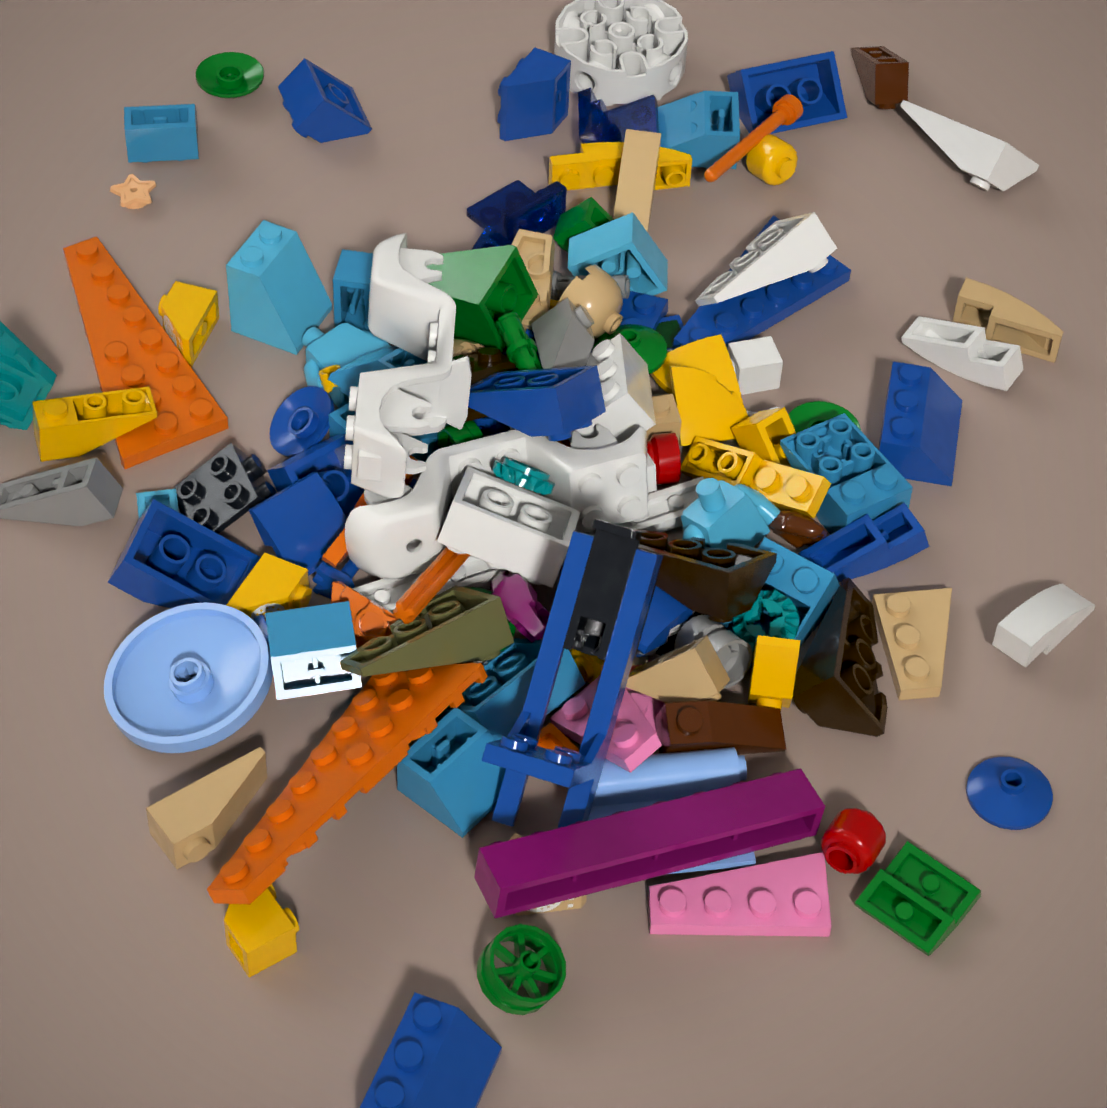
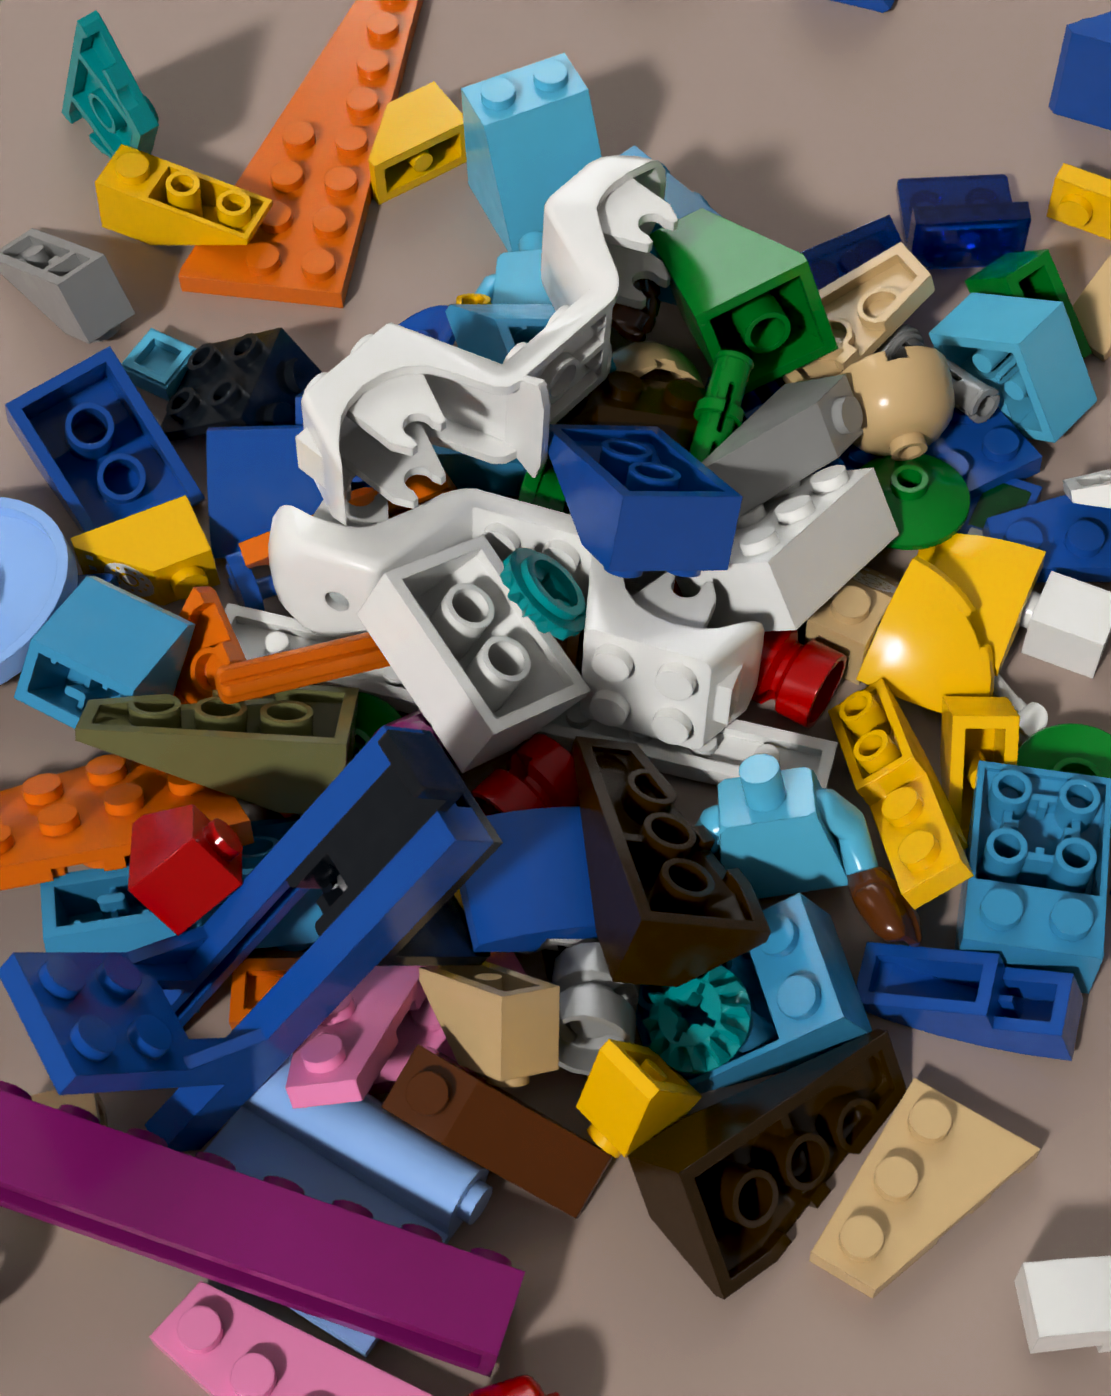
camera: 45 degrees right, 10 degrees up
(488, 683) = (183, 864): none -> red slope

